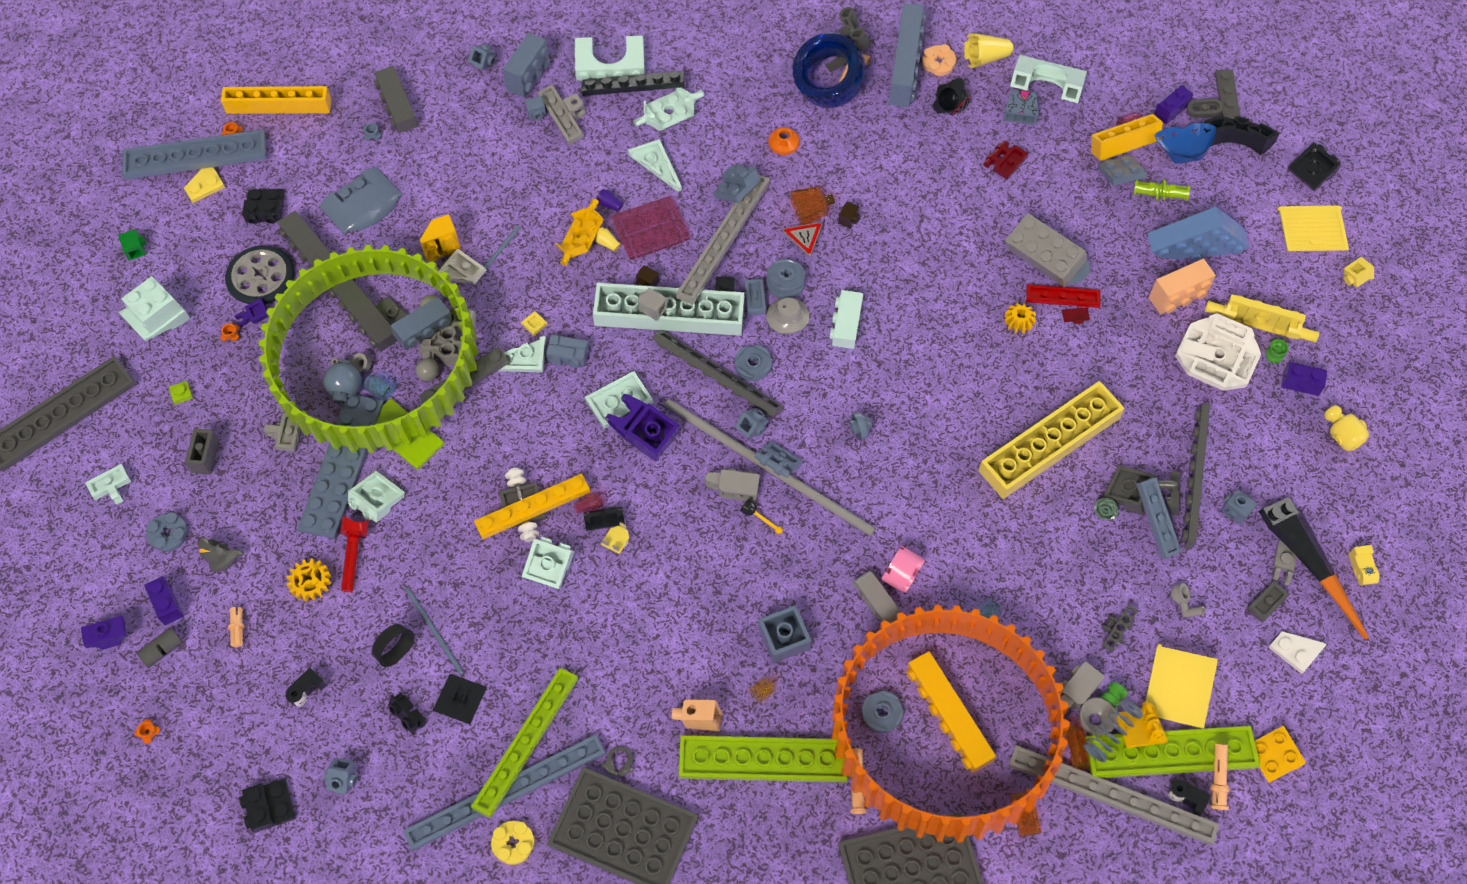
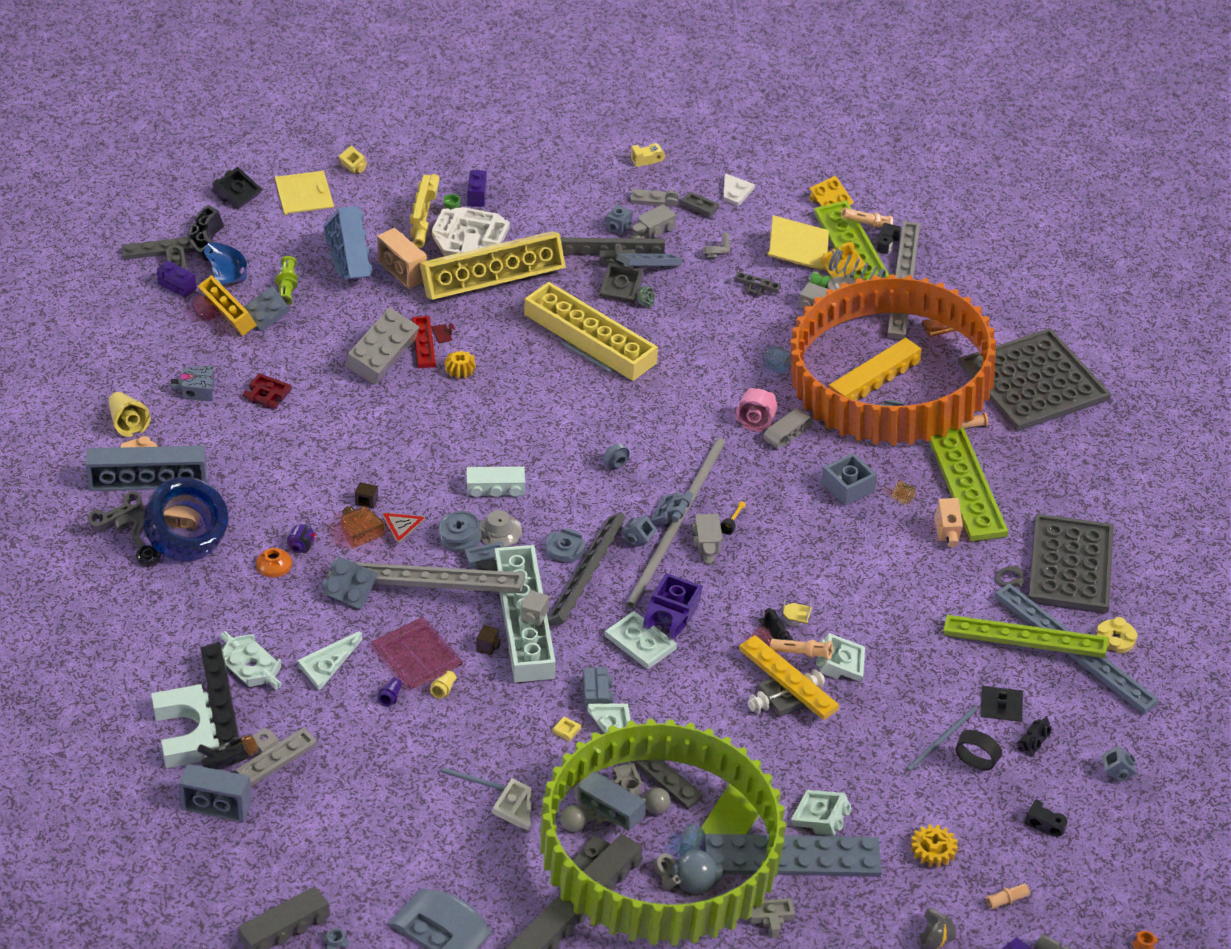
camera: 105 degrees left, 20 degrees down
(267, 805) = (1170, 821): black plate -> none
(353, 531) = (868, 819): red piece -> none
(439, 239) = (487, 820): yellow slope -> none
(482, 56) = (204, 844): sand blue brick -> none
(535, 108) = (273, 780): sand blue plate -> none
(551, 526) = (809, 648): none -> light nougat pin
(566, 77) = (229, 752): none -> black piece
(585, 222) = (430, 695): yellow plate -> none
(803, 160) = (301, 538): none -> dark purple head
(951, 97) = (193, 429): black piece -> none
(1032, 69) = (150, 377): light aqua arch -> none
(1162, 366) = (492, 265): none -> light yellow brick
(1233, 543) = (654, 223): none -> light grey hinge
(1296, 534) = (632, 190): black plate -> none
(1347, 429) = (522, 163): light yellow piece -> none

